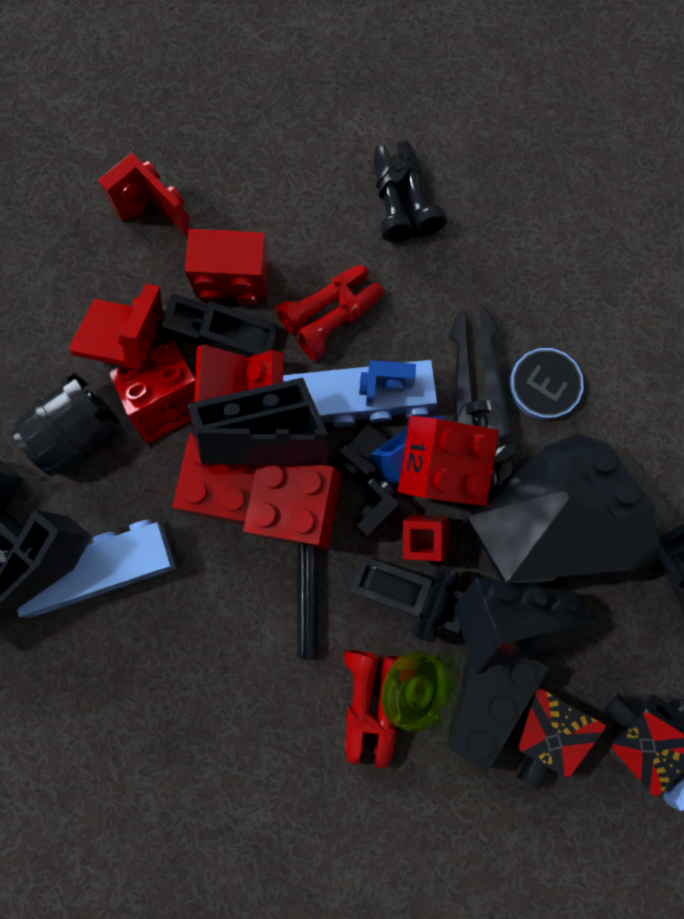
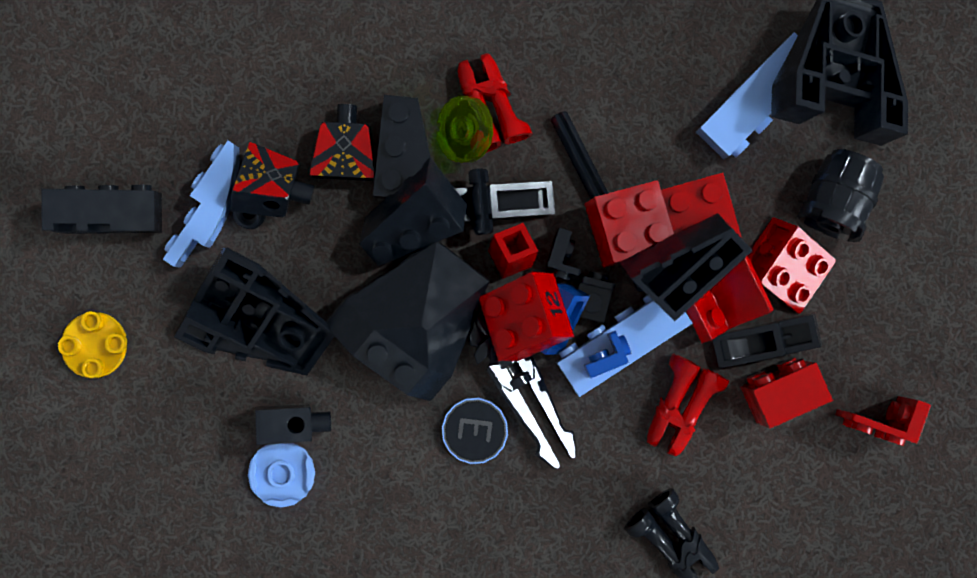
camera: 150 degrees right, 10 degrees up
(119, 331) = (846, 296): red bracket -> none

